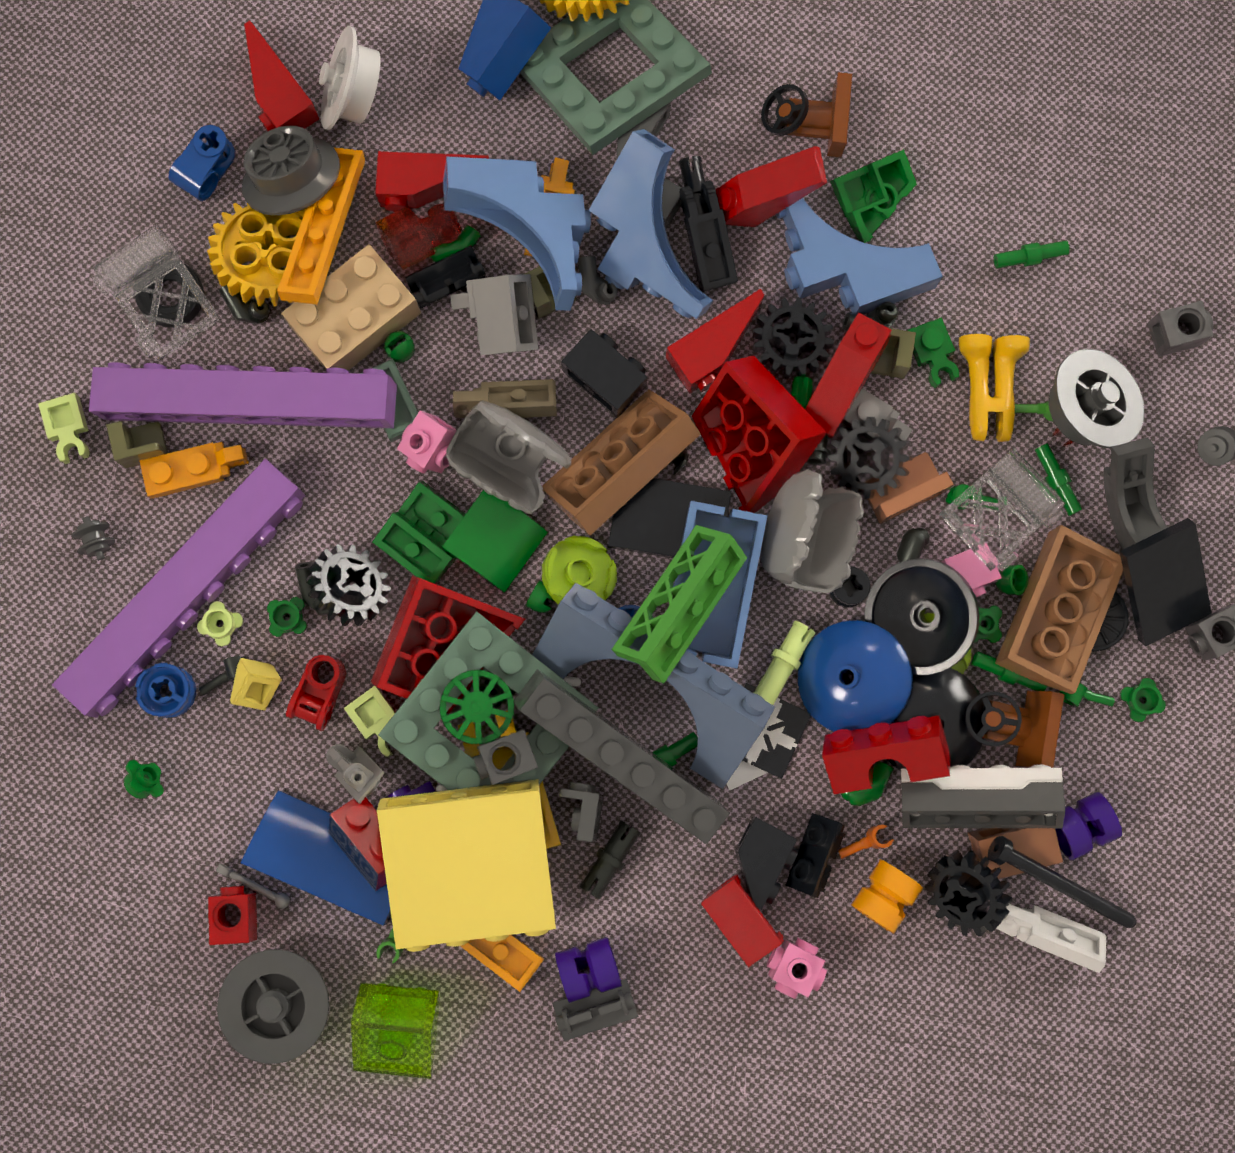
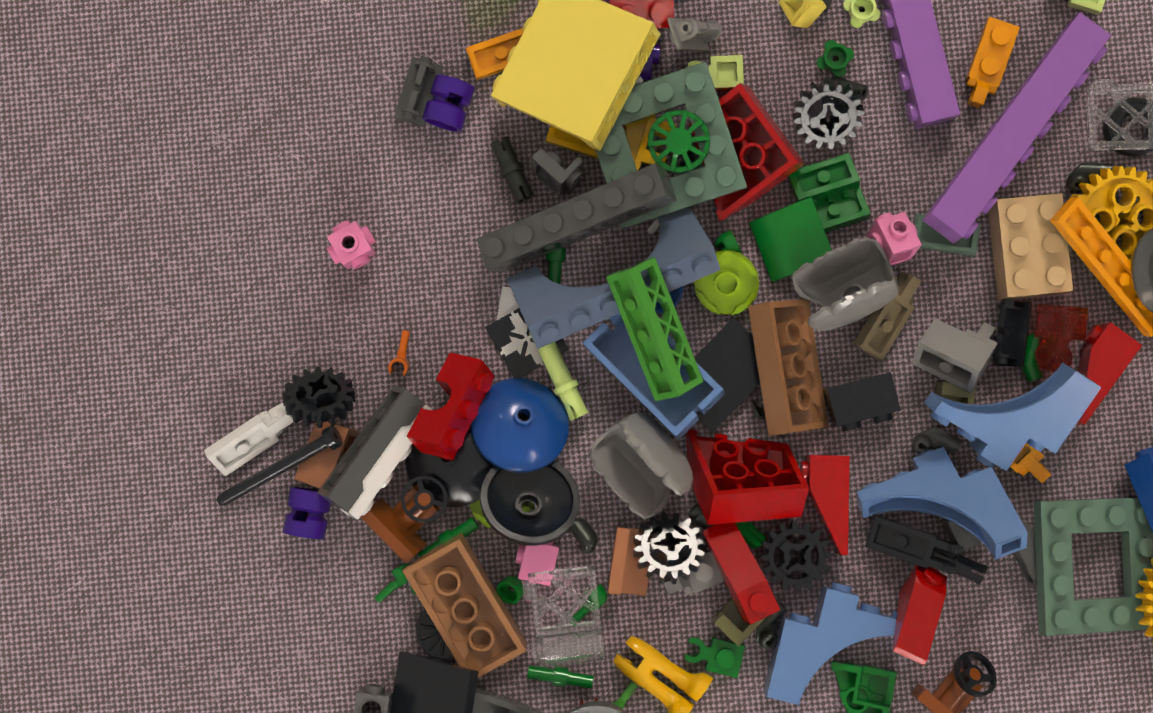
camera: 125 degrees right, 5 degrees up
(136, 443) = (1034, 33): olive panel -> none
(317, 694) = (763, 40): red piece -> none
(403, 351) = (975, 267): green hinge -> none
(523, 757) = (633, 151): dark grey brick -> none
(741, 921) = (408, 227): red hinge -> none
(762, 857) = (441, 272): black slope -> none
(819, 843) = (410, 302): black hinge -> none
(848, 594) = (582, 469): black wheel -> none
(881, 776) = (436, 392): green arm -> none
(887, 896) = (355, 340): light orange wheel -> none
(991, 631) = (495, 555): green plate -> none
(1153, 704) = (355, 626): green plate -> none

